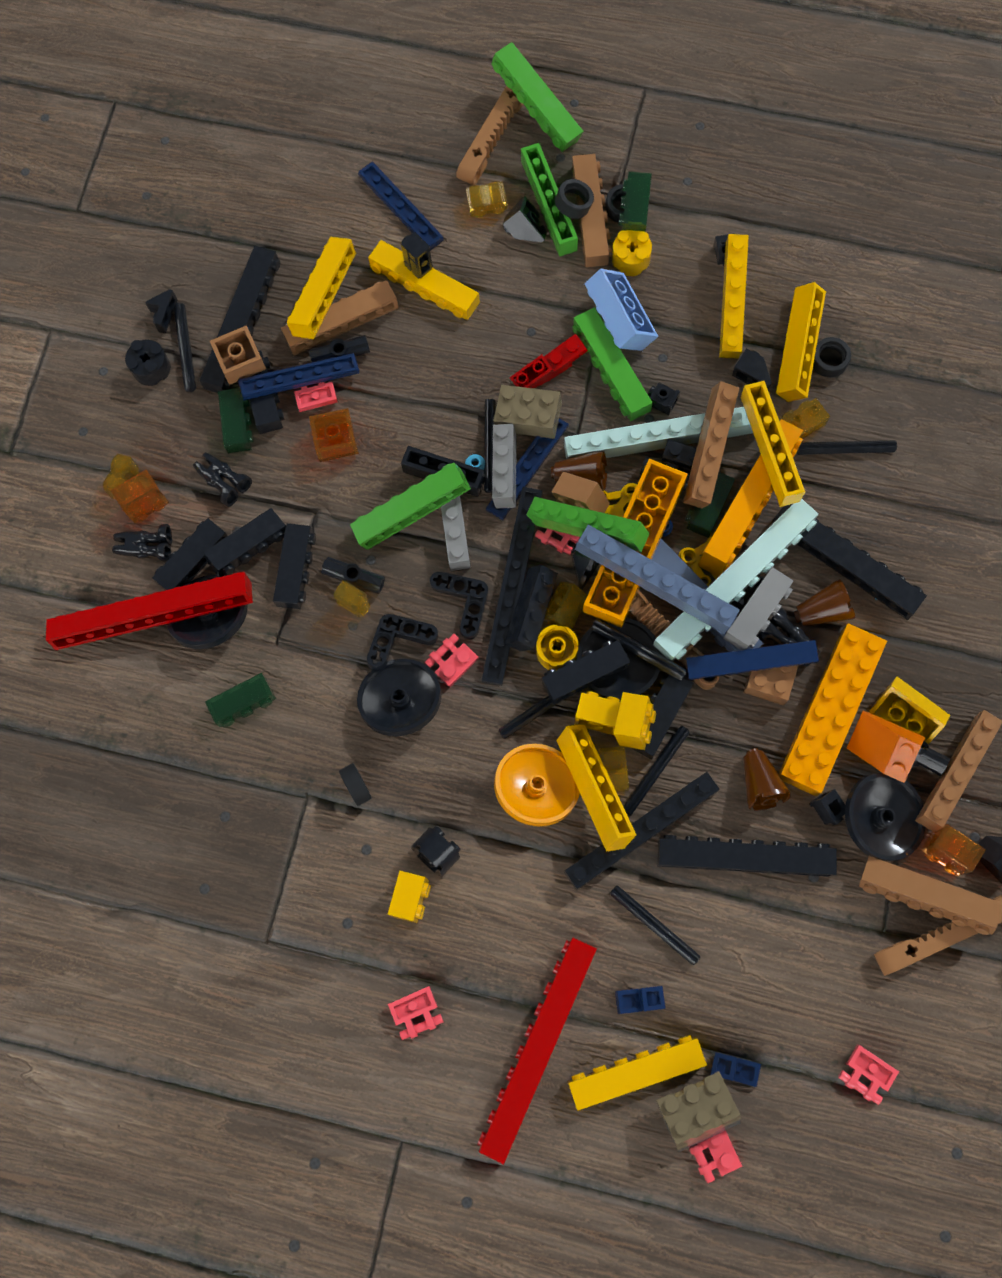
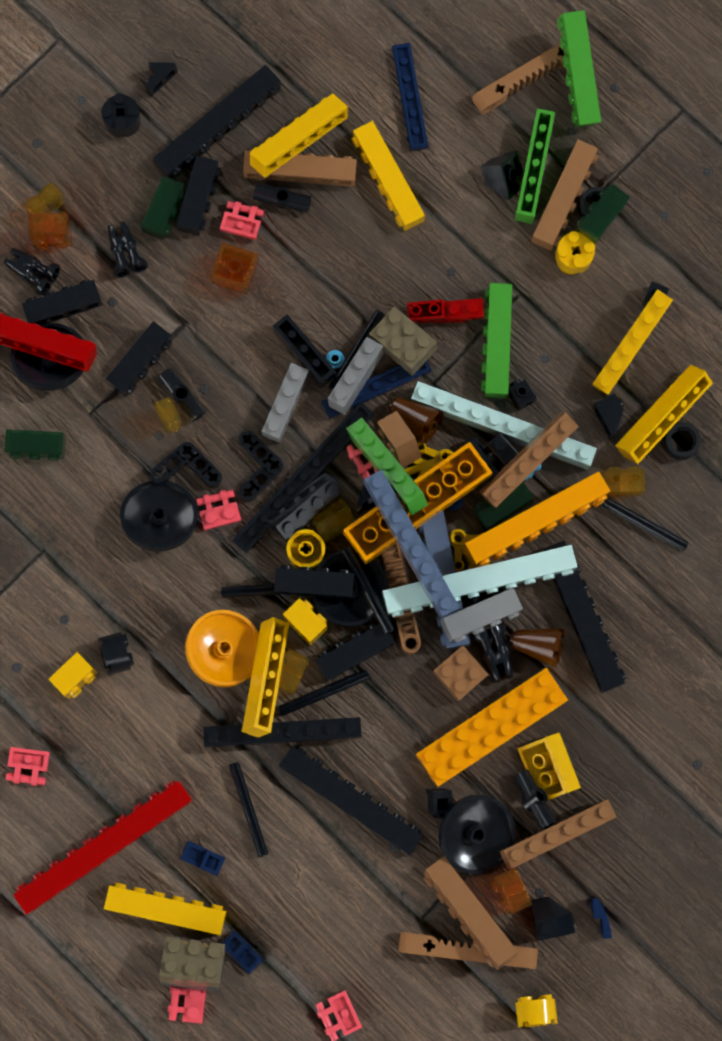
camera: 20 degrees right, 5 degrees up
(184, 347) = (159, 119): black axle -> none
(237, 355) = (194, 156): medium nougat brick -> none
(245, 543) = (111, 318): black brick -> none
(298, 376) = (235, 201): dark blue tile -> none
(355, 784) = (84, 564): black tyre -> none
(410, 506) = (258, 365): bright green brick -> none
(416, 255) = (390, 155): black brick -> none
(486, 199) = (483, 134): clear yellow brick -> none
(578, 188) = (563, 174): black tyre -> none
(620, 310) = (532, 299): light blue brick -> none
(634, 721) = (326, 645): yellow brick -> none
(752, 660) = (450, 651): dark blue tile -> none
(762, 782) = (399, 751): reddish brown cone -> none
(772, 444) = (573, 488): yellow brick -> none
(885, 745) = (512, 781): orange slope -> none

